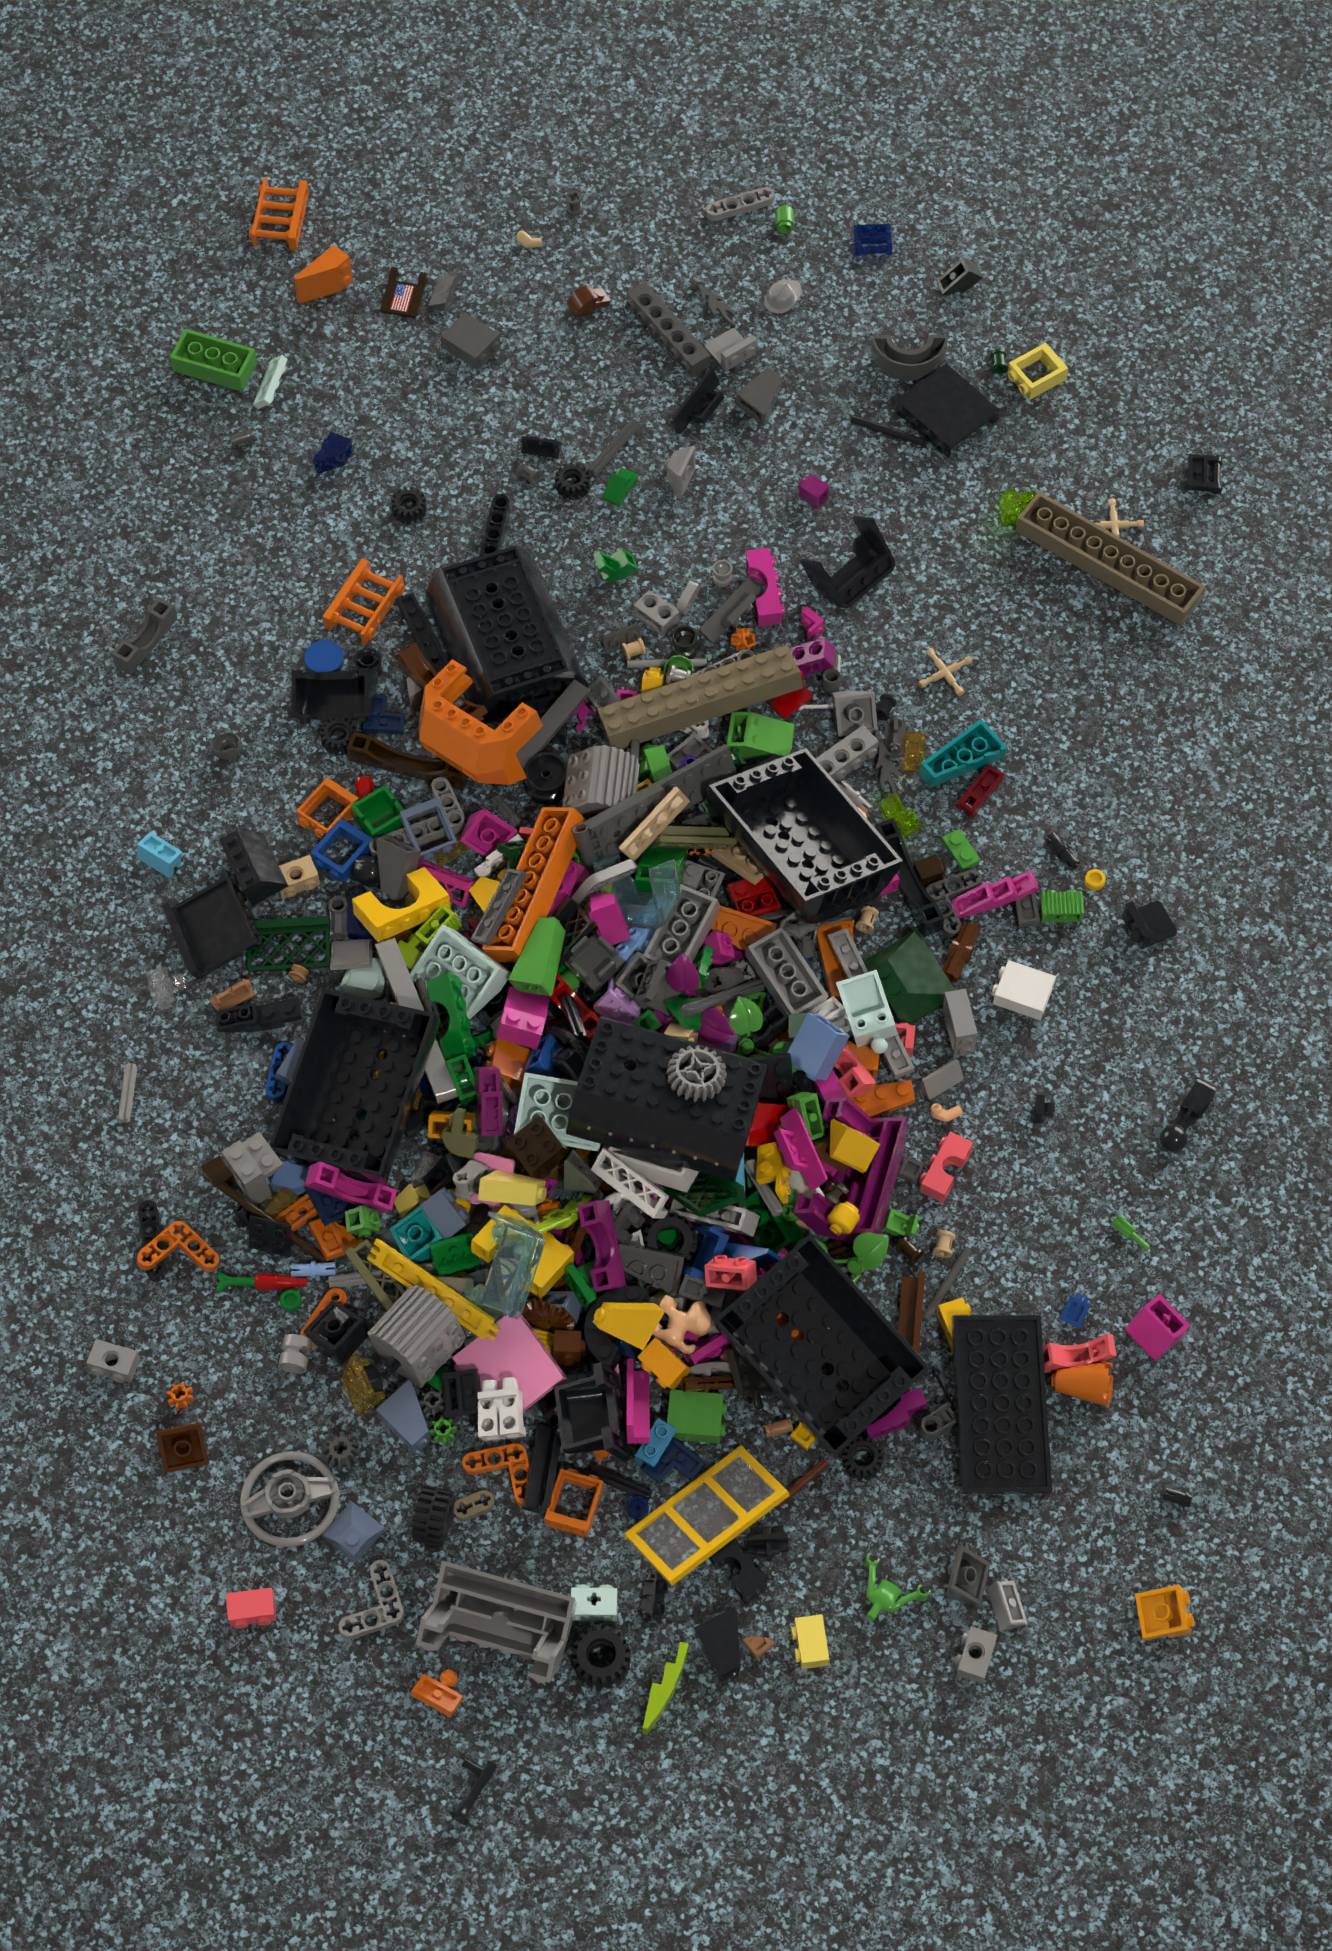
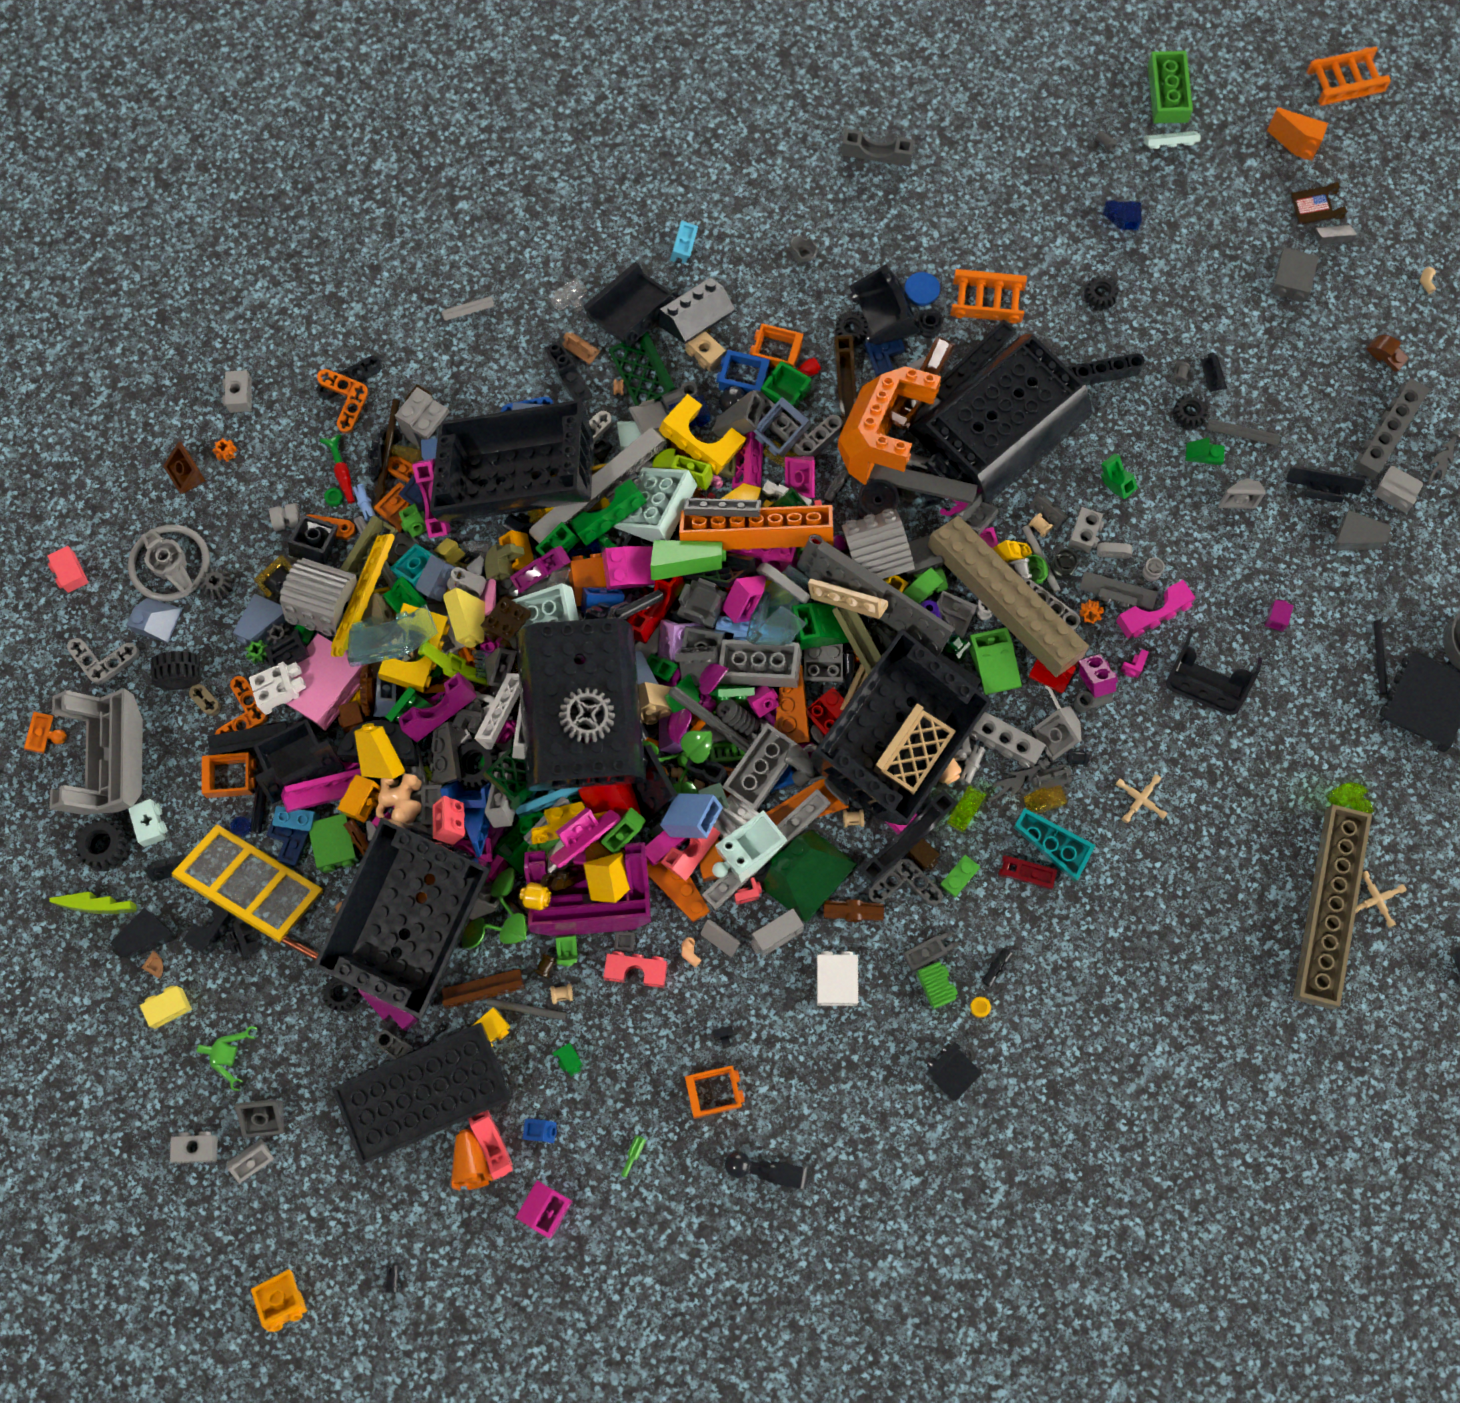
camera: 70 degrees right, 10 degrees up
(810, 839) = (900, 739): none -> tan fence
(995, 895) = (922, 921): dark pink slope -> none
(1014, 1258) = (568, 1059): none -> green brick
(1092, 1155) = (738, 1095): none -> orange window

